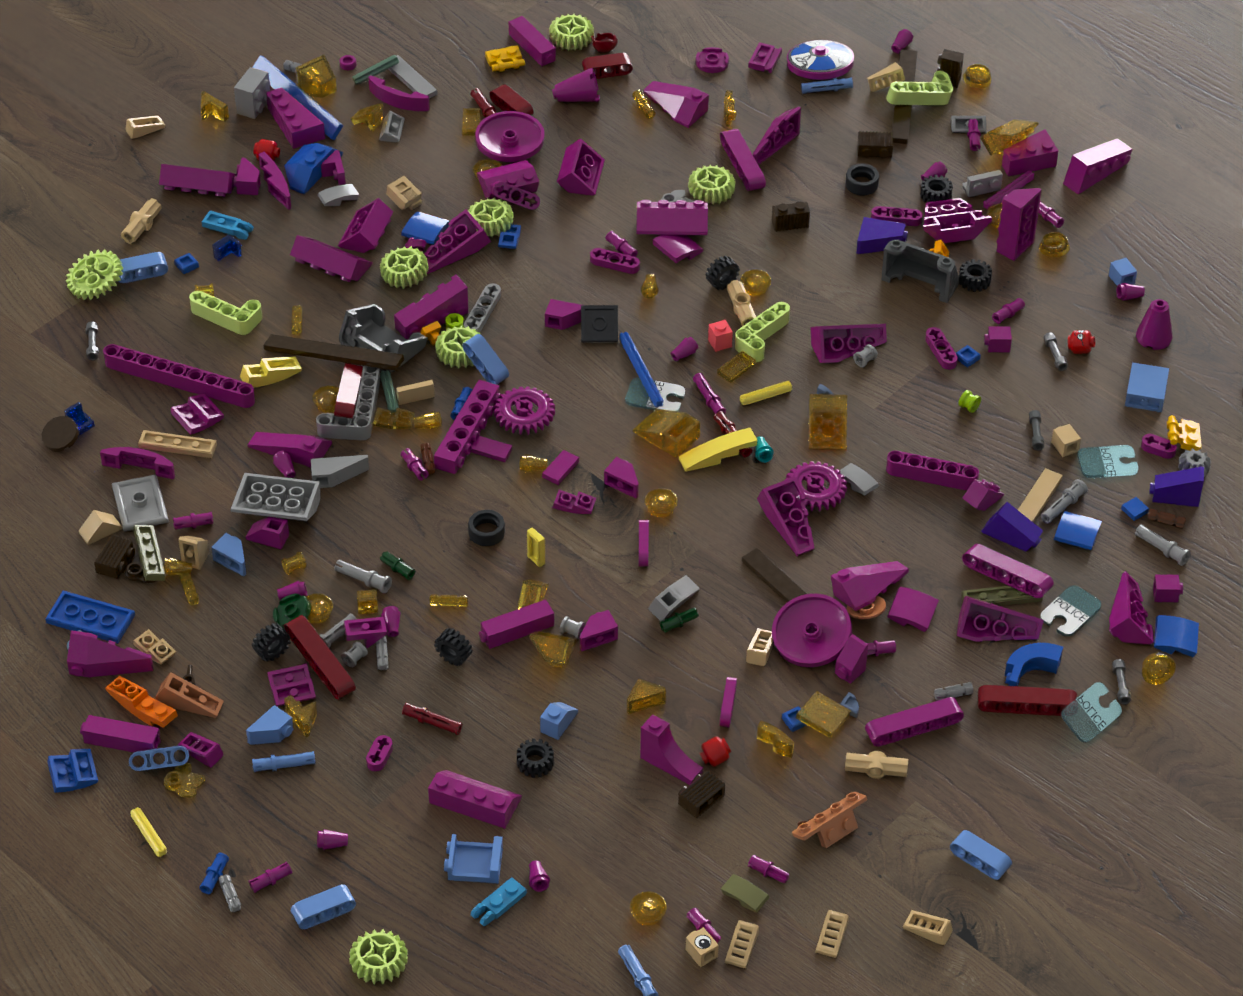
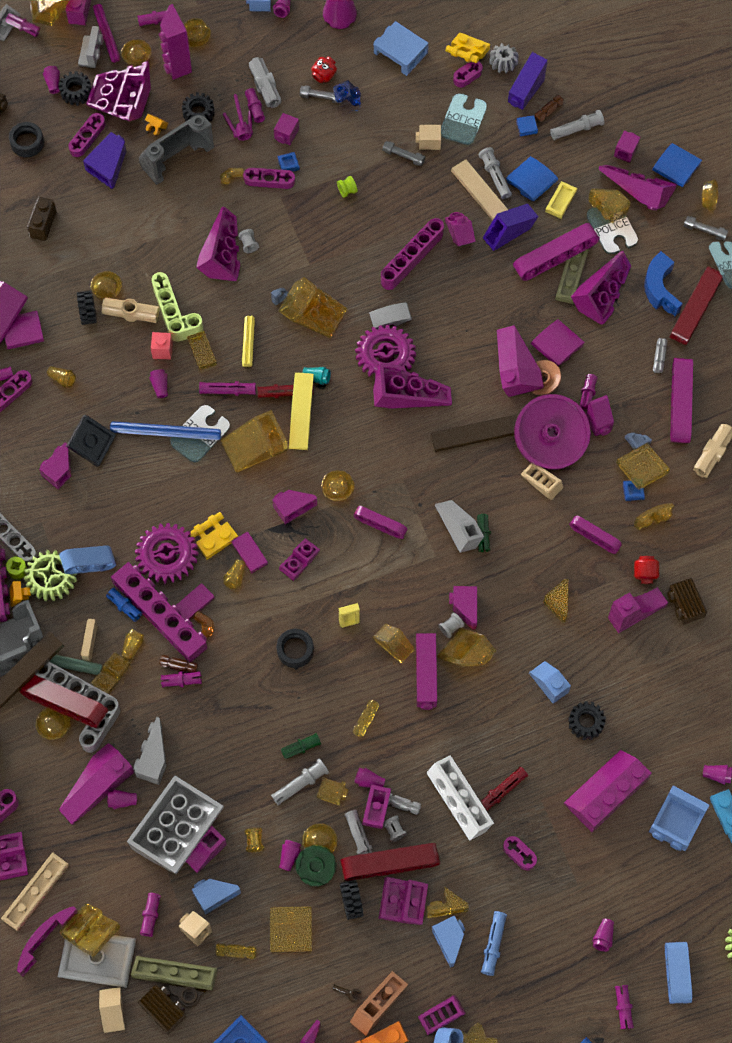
camera: 65 degrees left, 20 degrees up
(150, 644) = (296, 1012): tan slope -> none
(160, 485) = (89, 929): none -> clear yellow slope
(175, 566) = (204, 953): clear yellow cone -> none
(226, 616) = (290, 929): none -> clear yellow slope
(406, 686) = (460, 797): none -> white brick
(453, 647) = (433, 737): black tyre -> none
(476, 463) = (206, 622): none -> clear orange arm
(558, 441) = (217, 539): none -> yellow plate
(928, 321) = (231, 172): none -> clear yellow arm
(977, 311) = (243, 130): none -> magenta plant
(1037, 308) = (264, 82): none -> light grey piece
(1068, 366) = (347, 91): none -> clear blue bracket
(1072, 561) = (561, 200): none -> light yellow tile
(1090, 595) = (610, 203): none -> clear yellow slope

